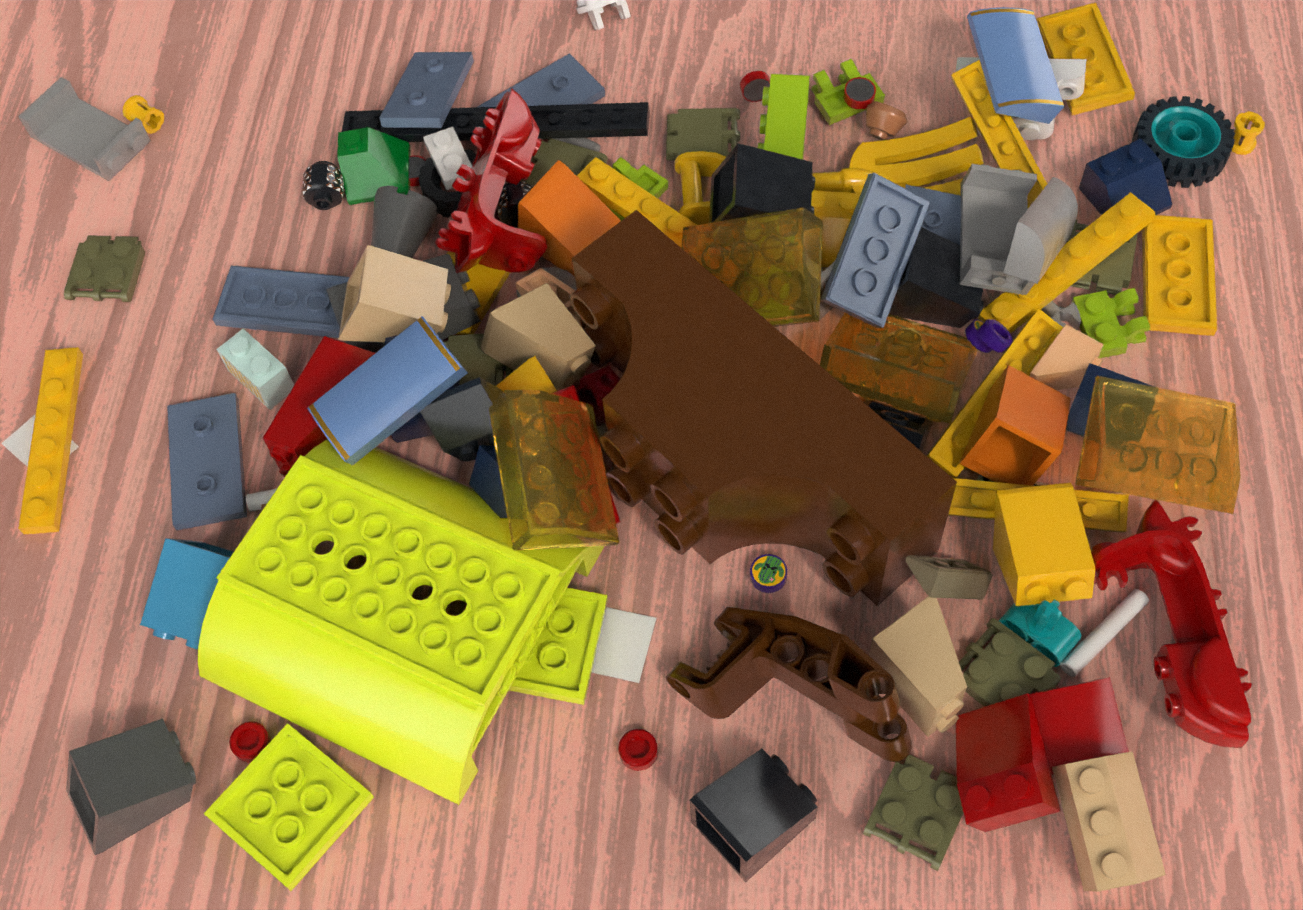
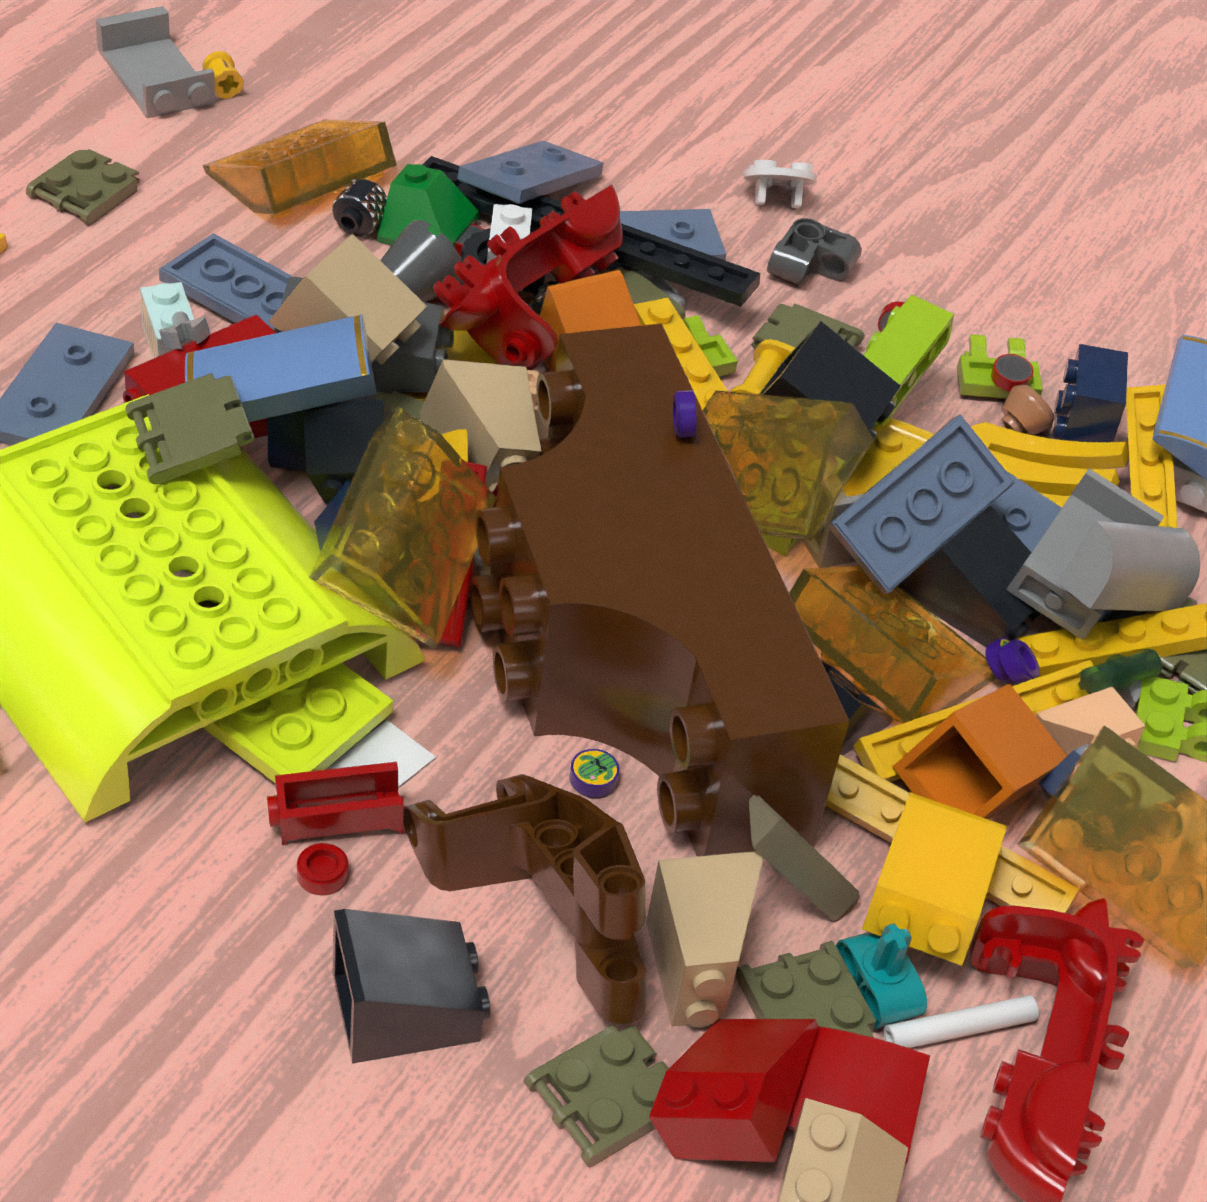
camera: 15 degrees right, 15 degrees down
(255, 166) = (304, 165): none -> clear yellow slope
(281, 377) = (184, 329): none -> light grey bar
(356, 474) = (191, 426): none -> olive plate
(640, 667) = (337, 801): none -> red window
(663, 52) = (813, 249): none -> dark grey piece
(706, 287) = (684, 414): none -> dark purple tile
(927, 90) = (1093, 397): none -> dark blue brick
(1063, 308) = (1120, 671): none -> clear green axle

